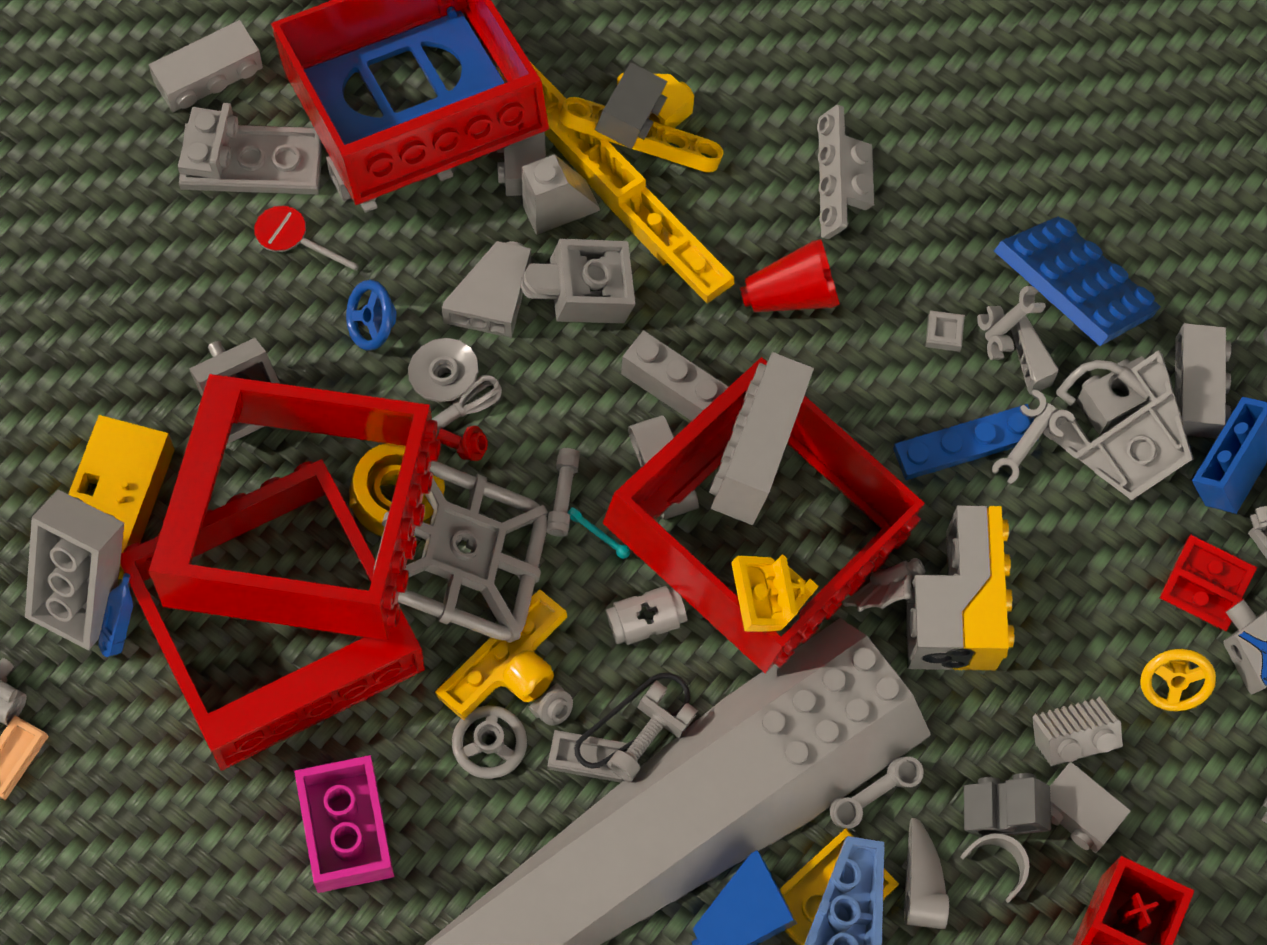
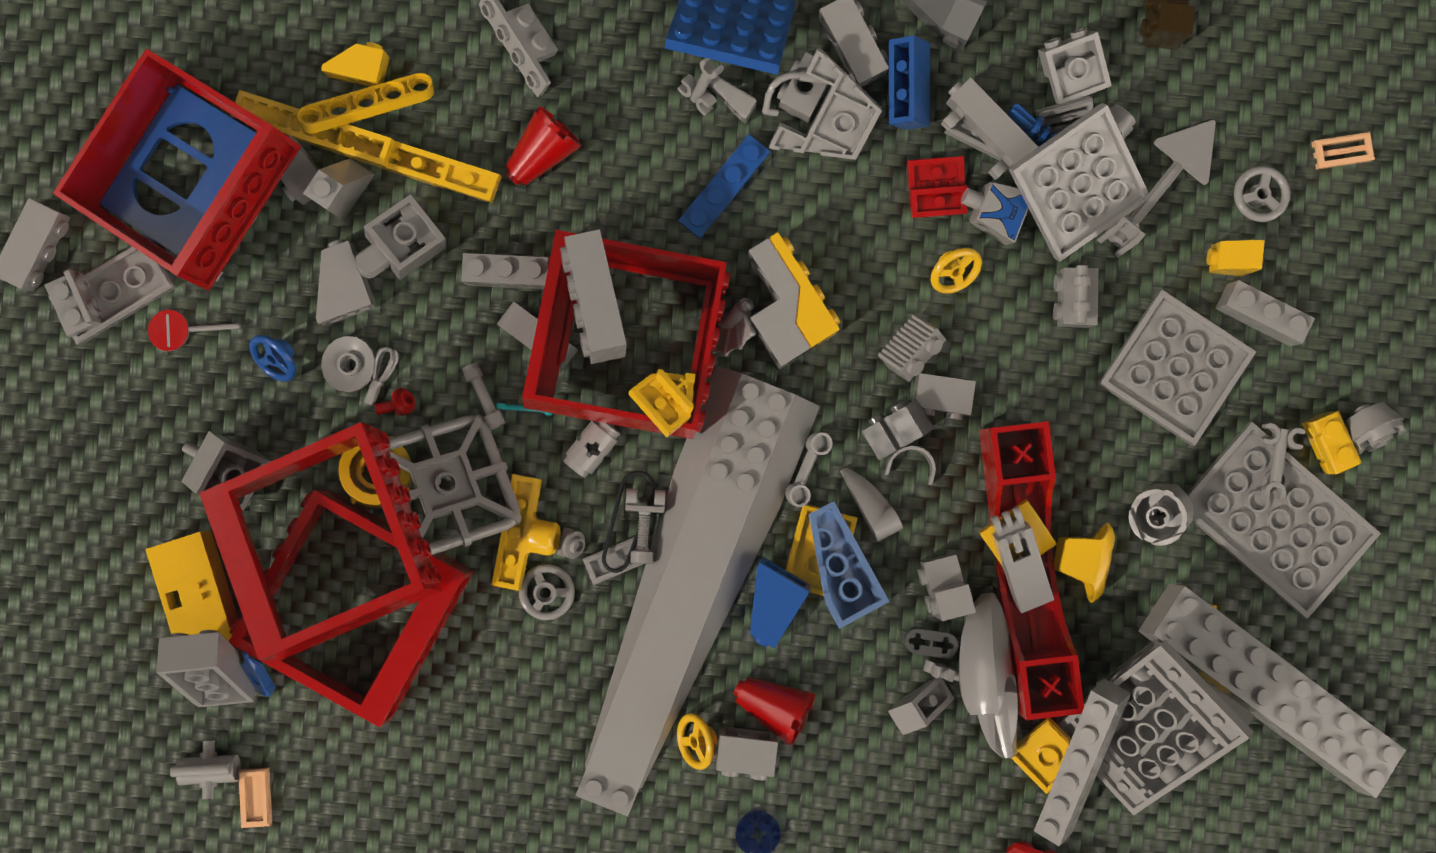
camera: 30 degrees left, 20 degrees up
(343, 824) = (492, 708): dark pink brick -> none
(631, 106) = (346, 91): dark grey brick -> none
(945, 331) = (662, 113): light grey tile -> none
(1045, 416) = (766, 138): light grey bar -> none

